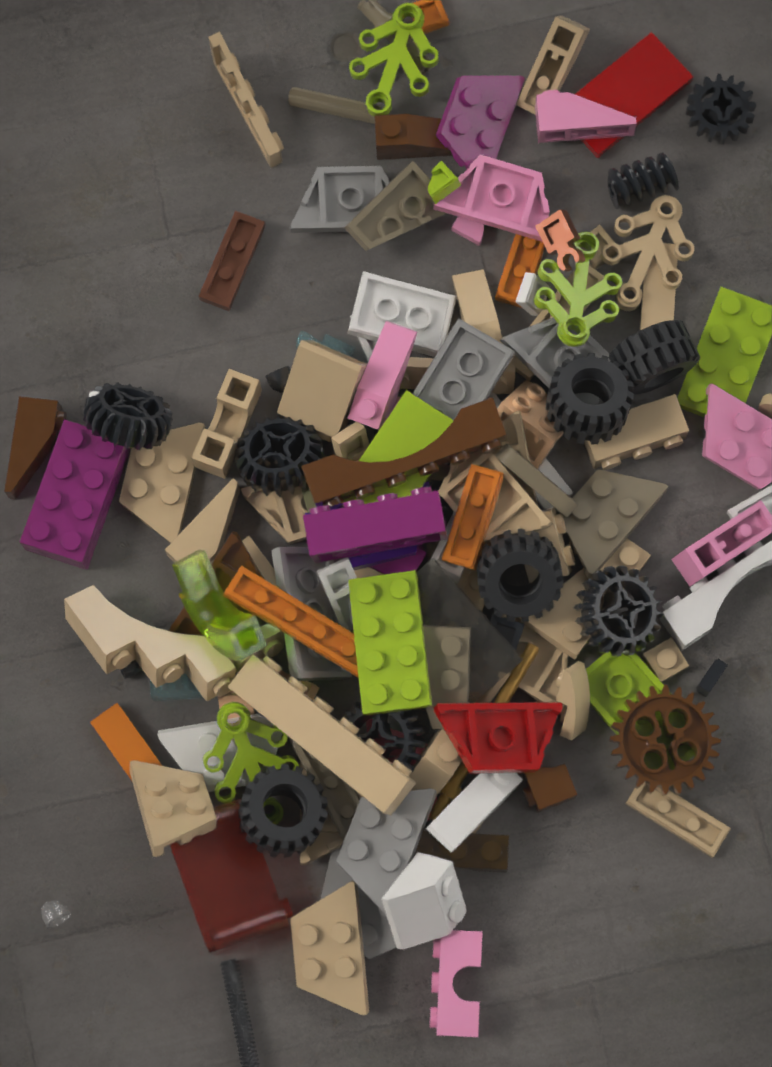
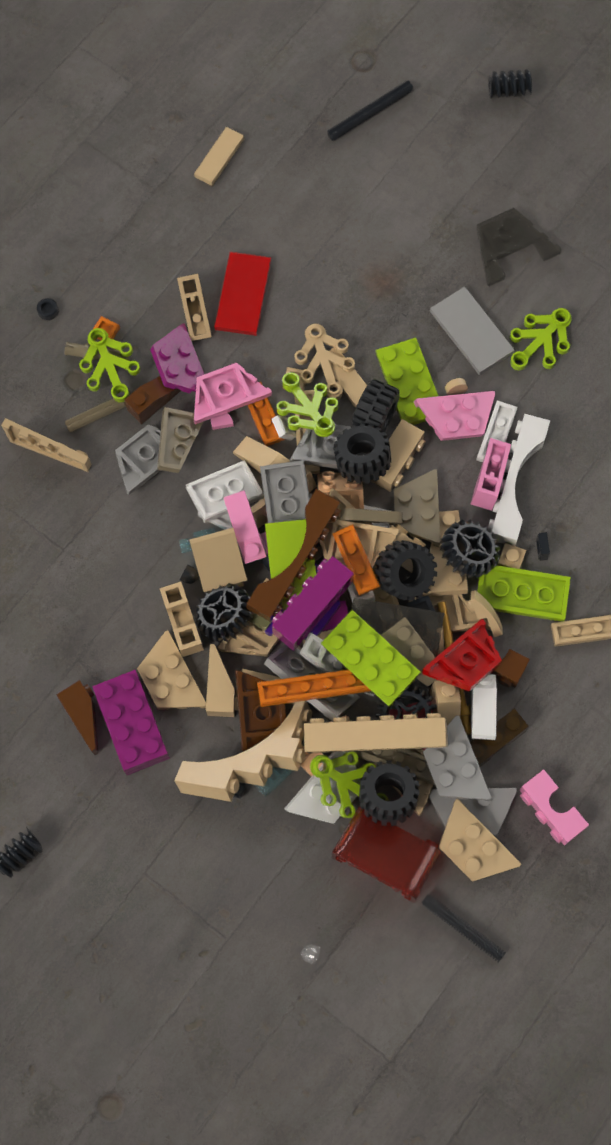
camera: 40 degrees left, 5 degrees down
(123, 738) = (279, 833): orange tile -> none
(127, 416) = (125, 657): black gear -> none
(171, 804) = (327, 838): tan wing -> none
(218, 620) = (264, 721): clear neon green arch -> none
(232, 261) = (110, 534): copper plate -> none
(351, 442) = (256, 574): tan plate -> none
(424, 901) = (503, 777): white slope -> none
(442, 182) = (189, 406): lime tile -> none
(558, 237) = (274, 386): plate -> none
(575, 118) = (230, 321): bright pink slope -> none
(641, 178) = (288, 326): black piece -> none
(695, 734) = (561, 579): reddish brown gear -> none
(732, 101) = (298, 262): black gear -> none

